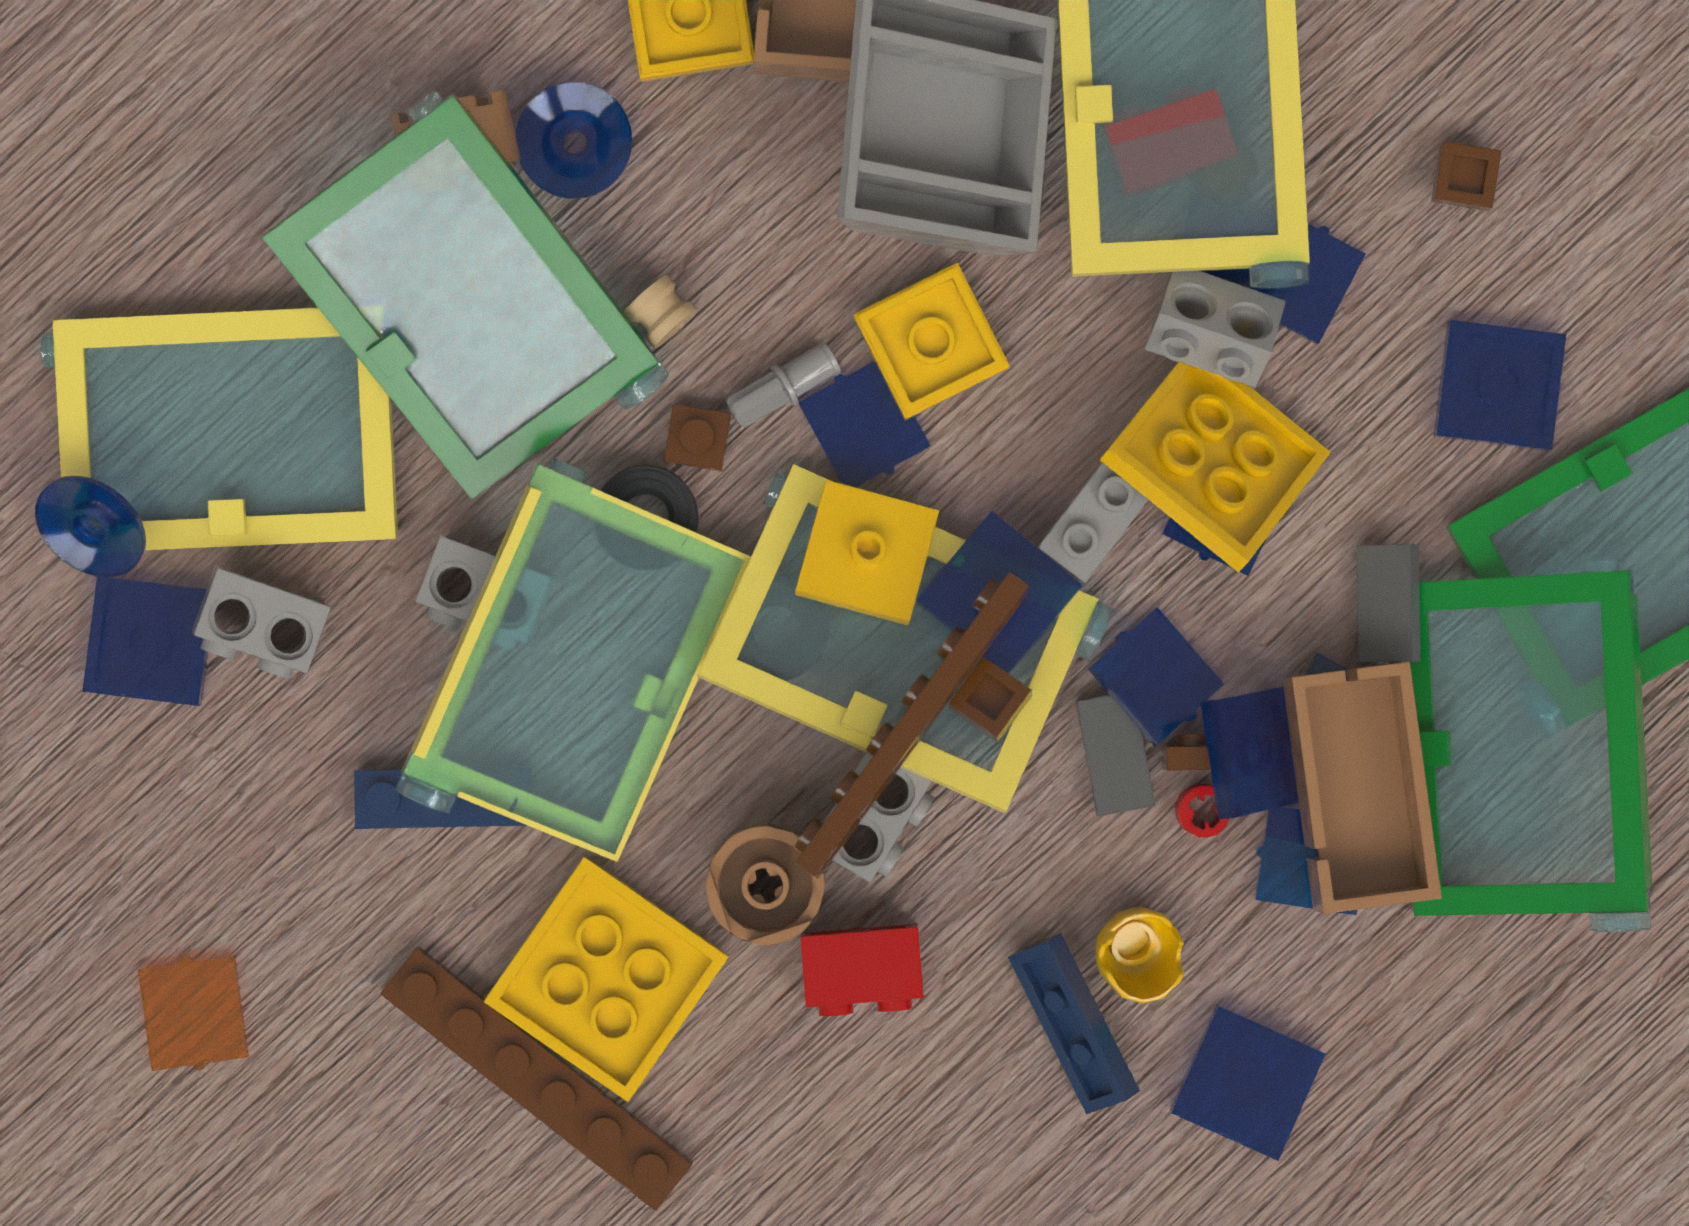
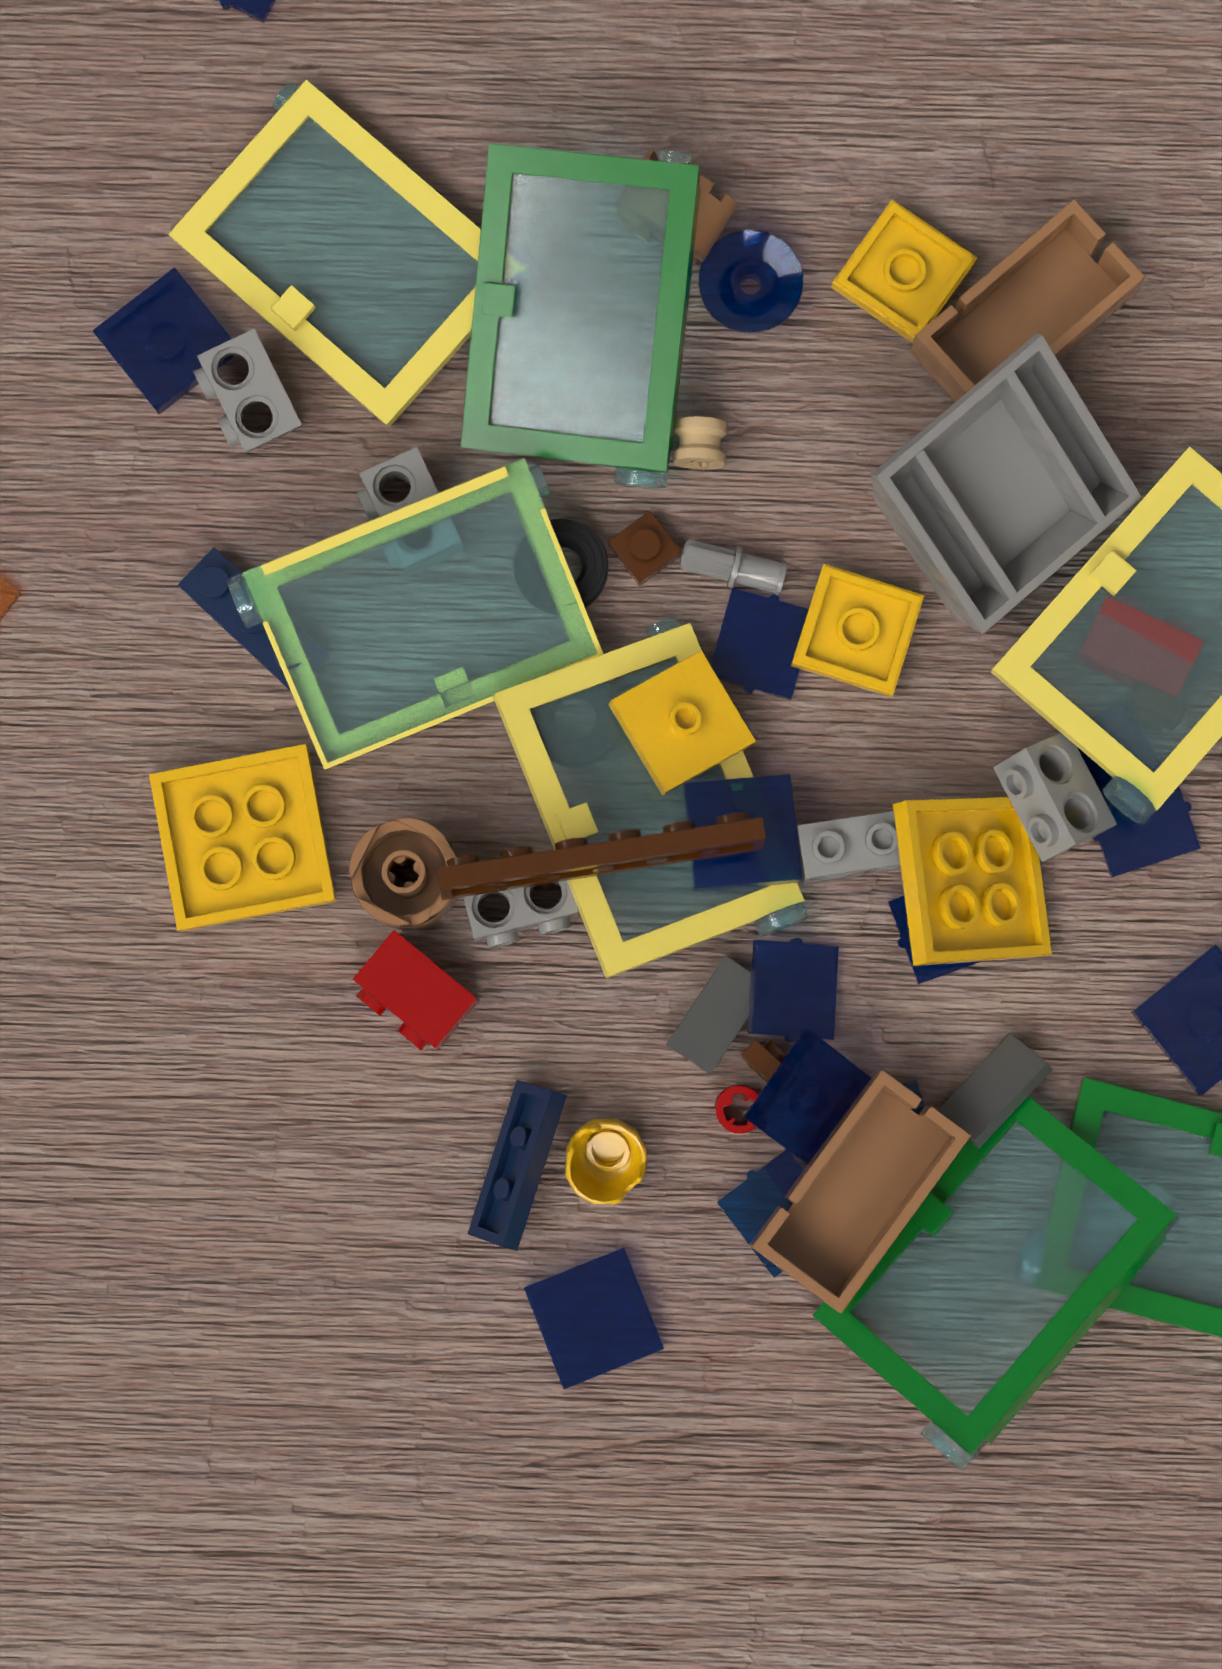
camera: 50 degrees right, 5 degrees down
(90, 526) = (200, 227): clear blue dish -> none
(536, 1078) = (134, 860): reddish brown plate -> none
(990, 699) = (669, 893): reddish brown plate -> none

